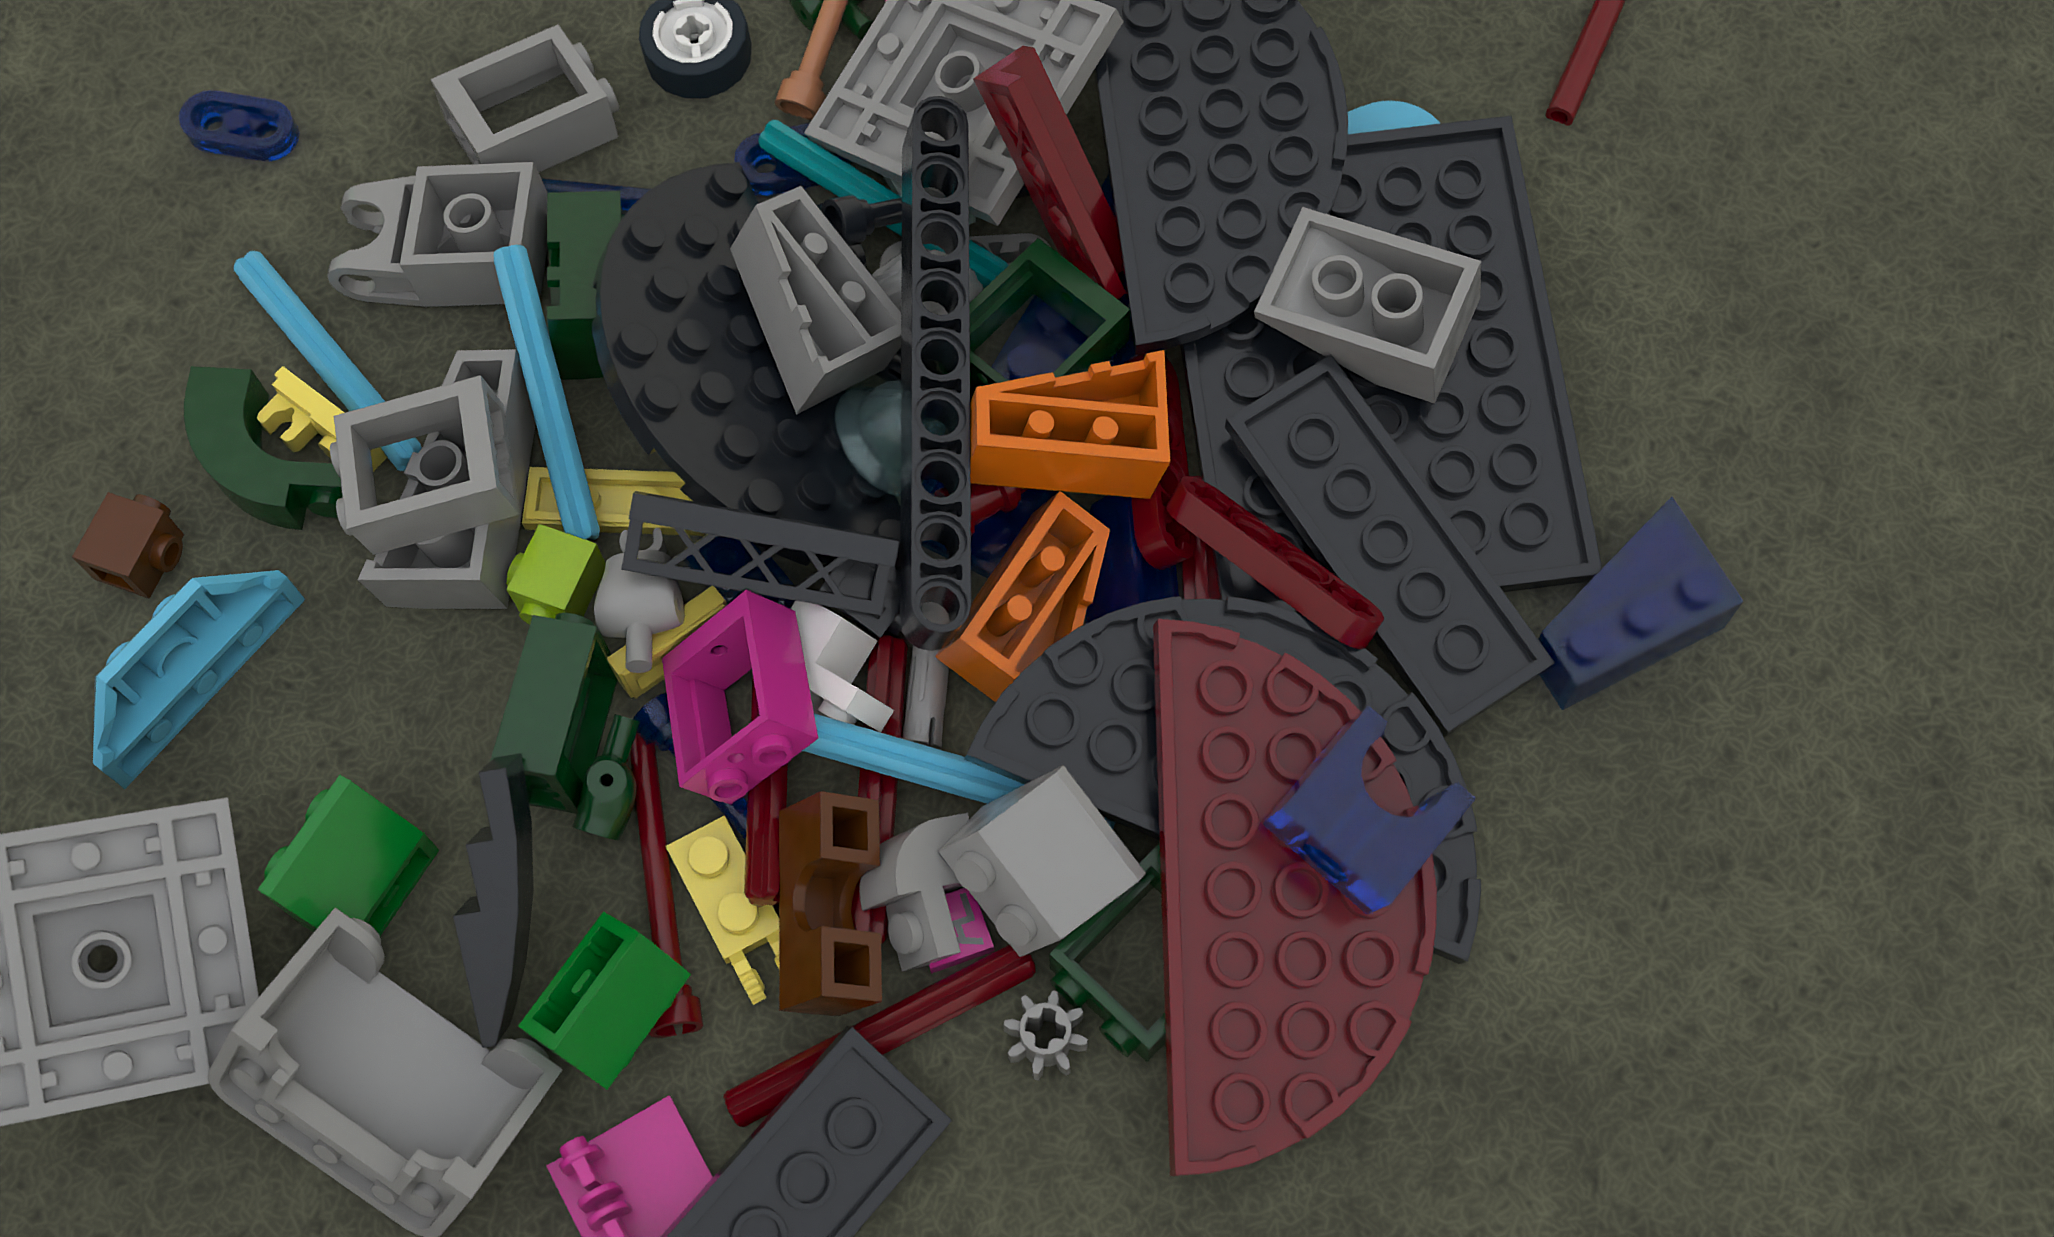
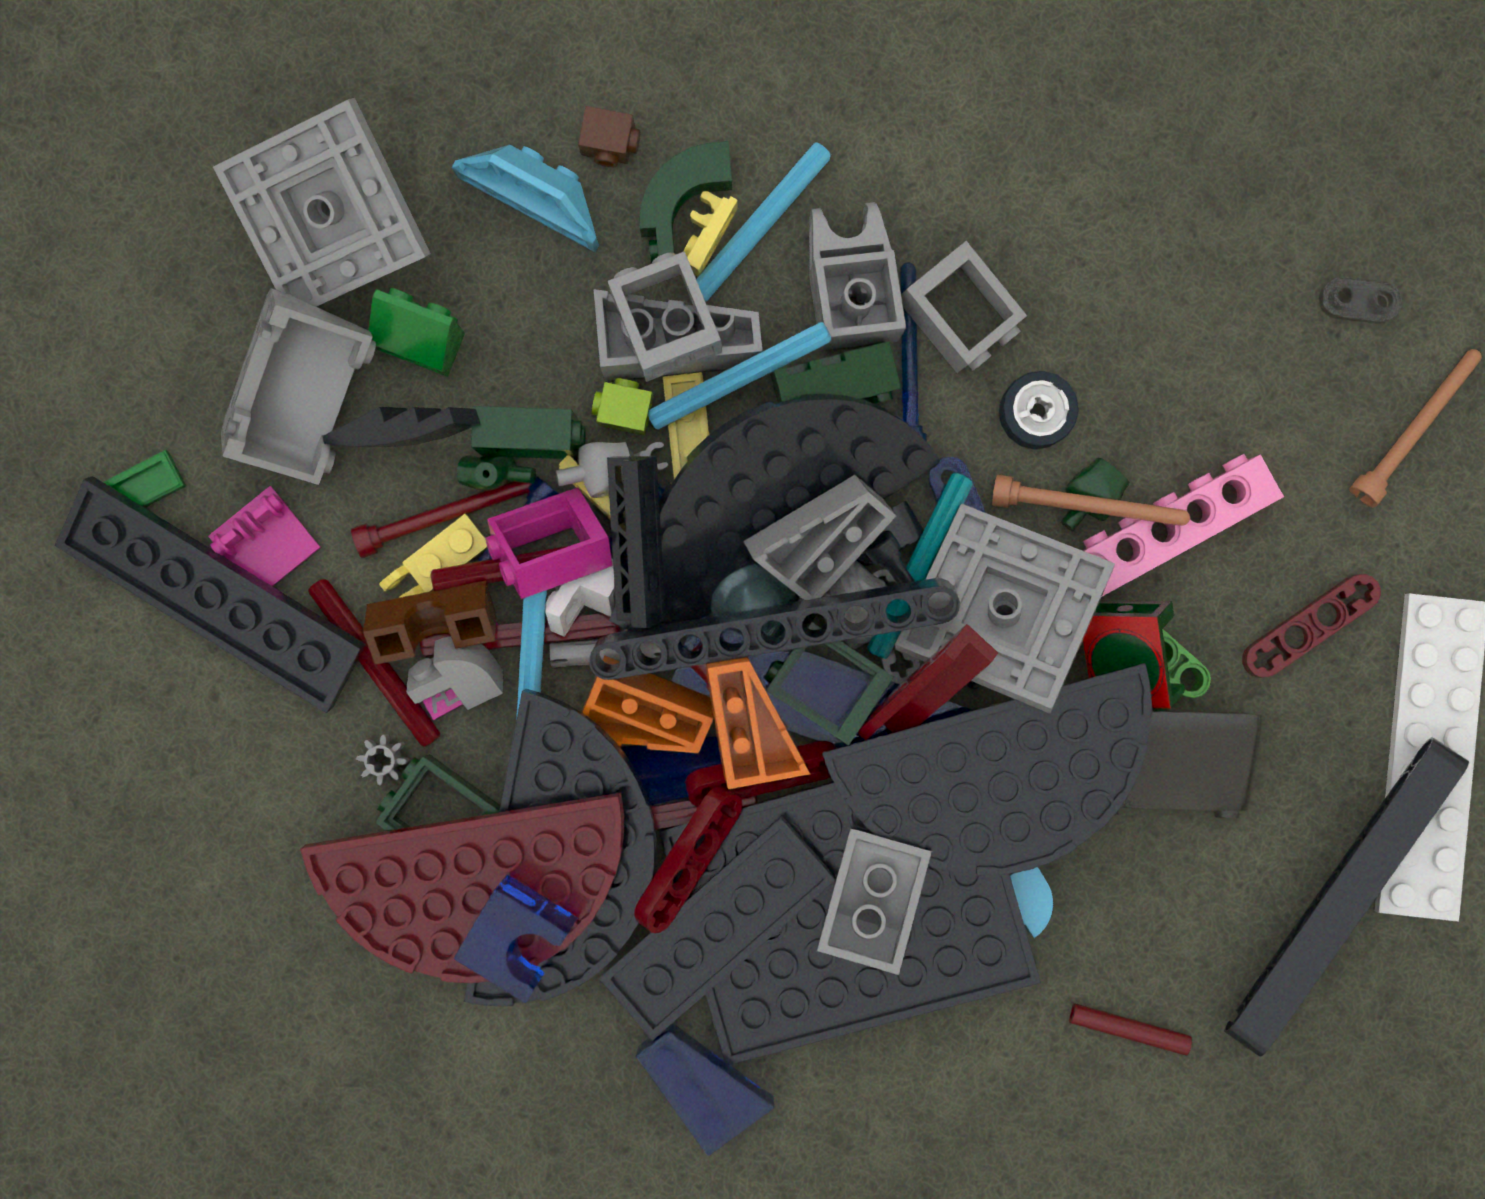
camera: 75 degrees right, 20 degrees up
(243, 126) = (924, 116): clear blue plate -> none
(605, 1000) = (355, 500): green slope -> none
(1041, 861) = (471, 742): light grey slope -> none

